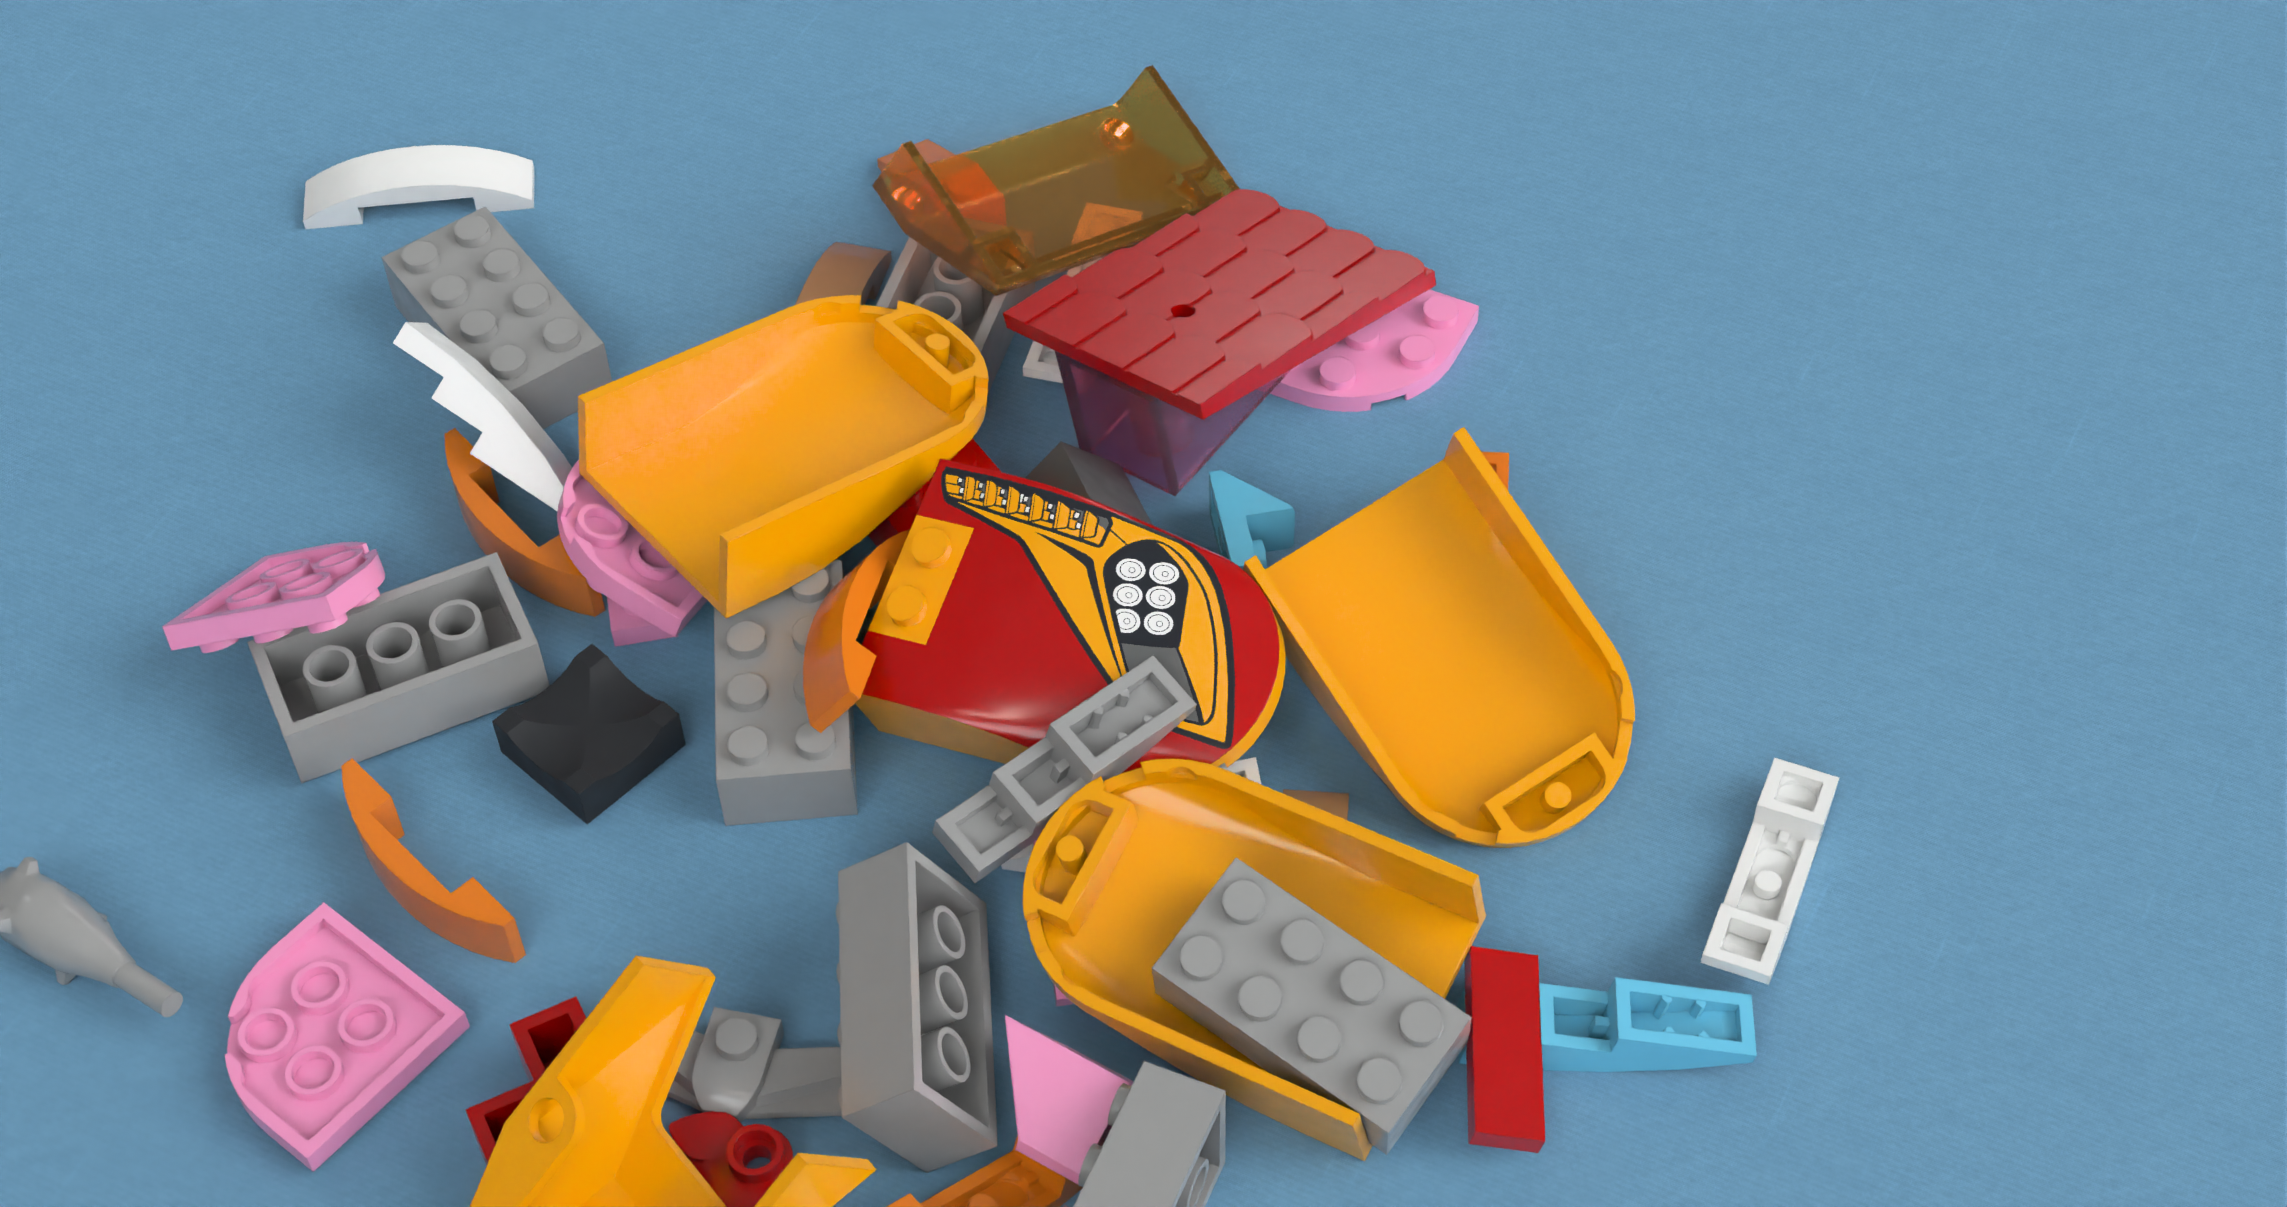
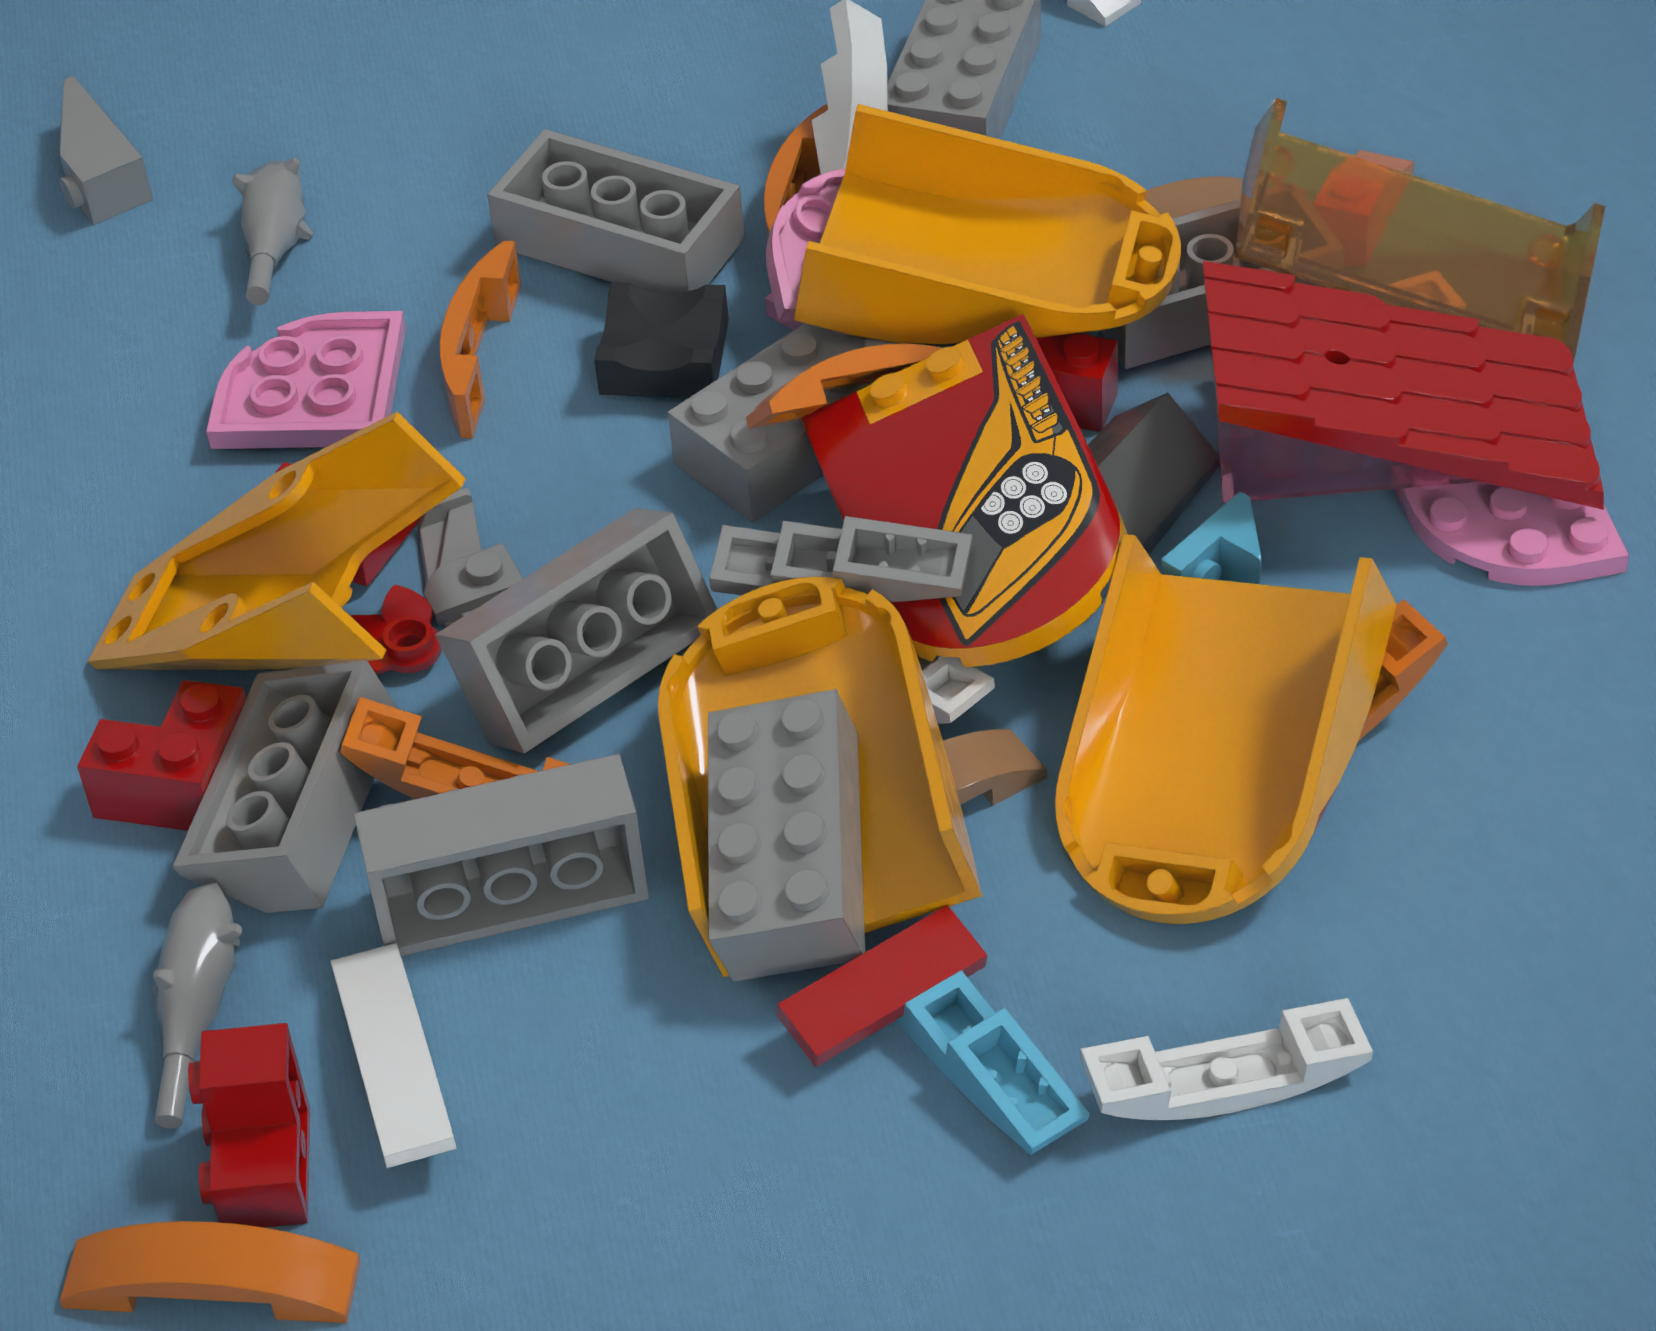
camera: 55 degrees right, 5 degrees down
(280, 594) = (592, 119): bright pink plate -> none
(1058, 1099) = (600, 727): bright pink slope -> none

